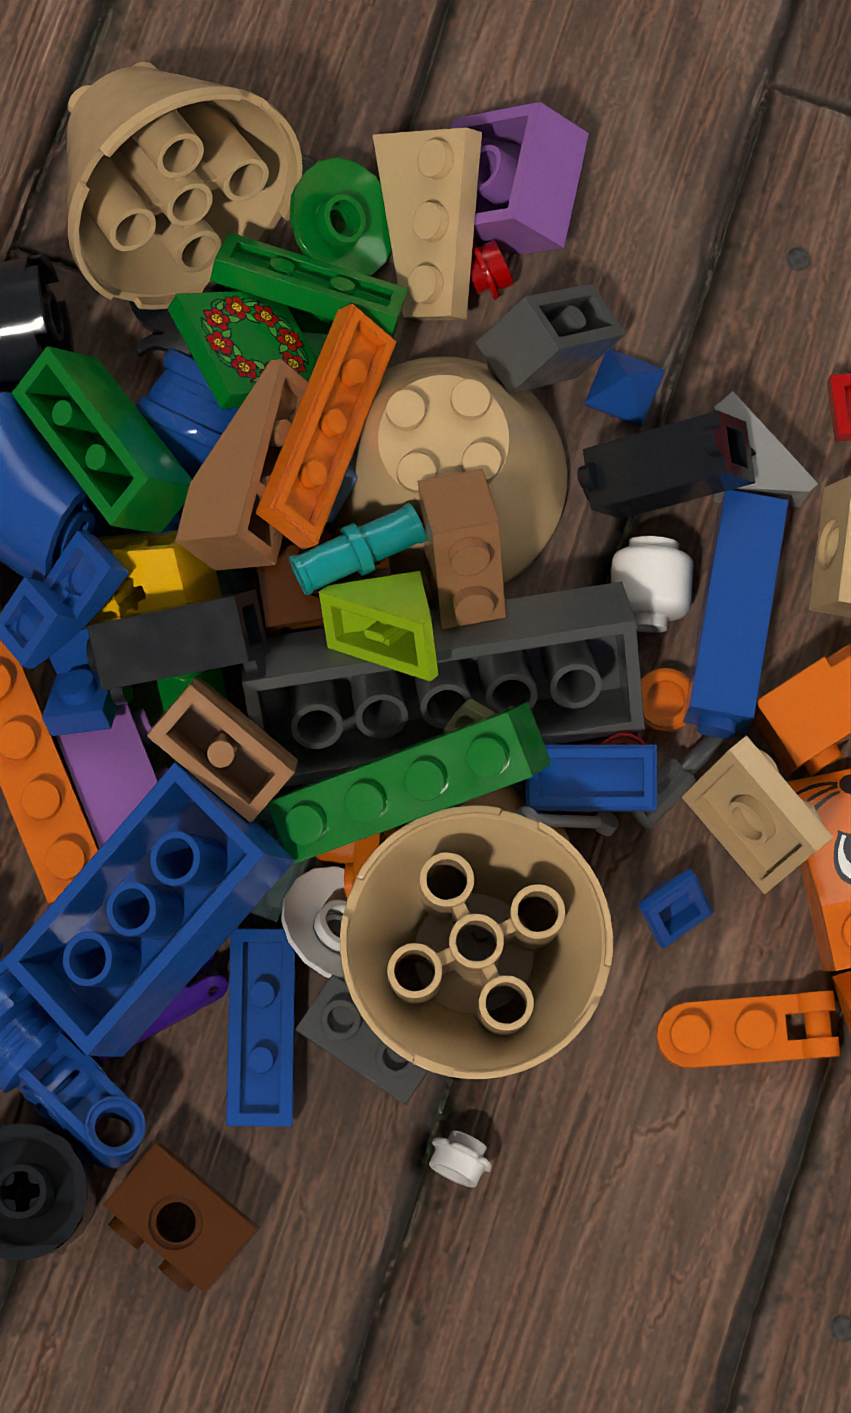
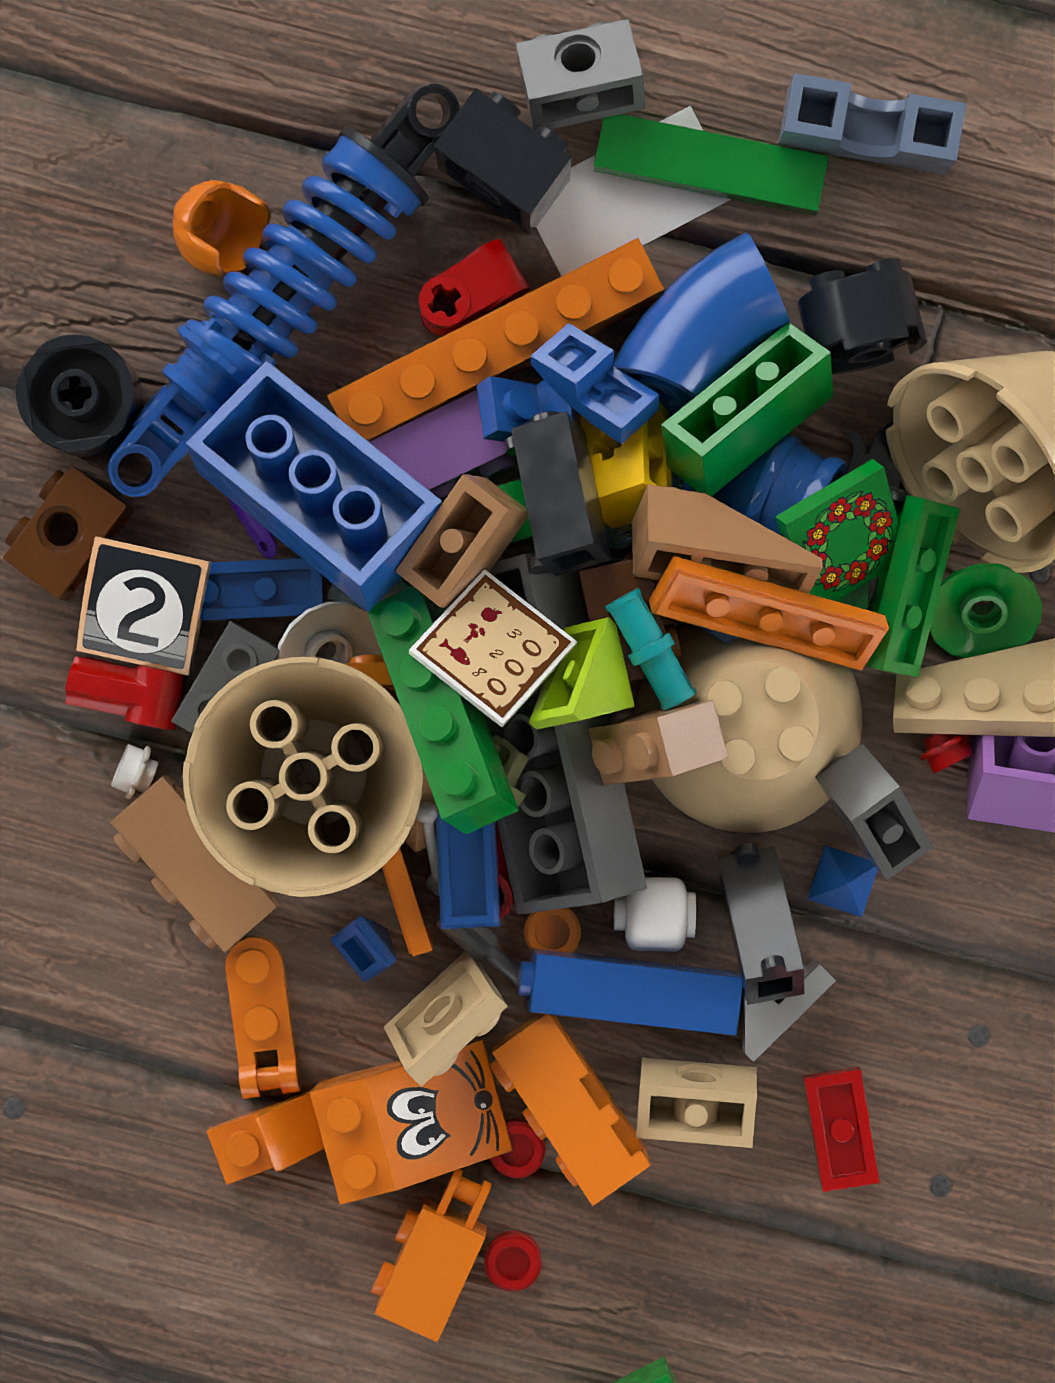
camera: 85 degrees right, 10 degrees up
(270, 1130) = (142, 605): none -> slope
(344, 718) = (492, 648): none -> piece
(371, 1147) = (138, 693): none -> red piece
(572, 1095) = (186, 872): none -> medium nougat brick
(635, 852) = (407, 904): none -> orange tile

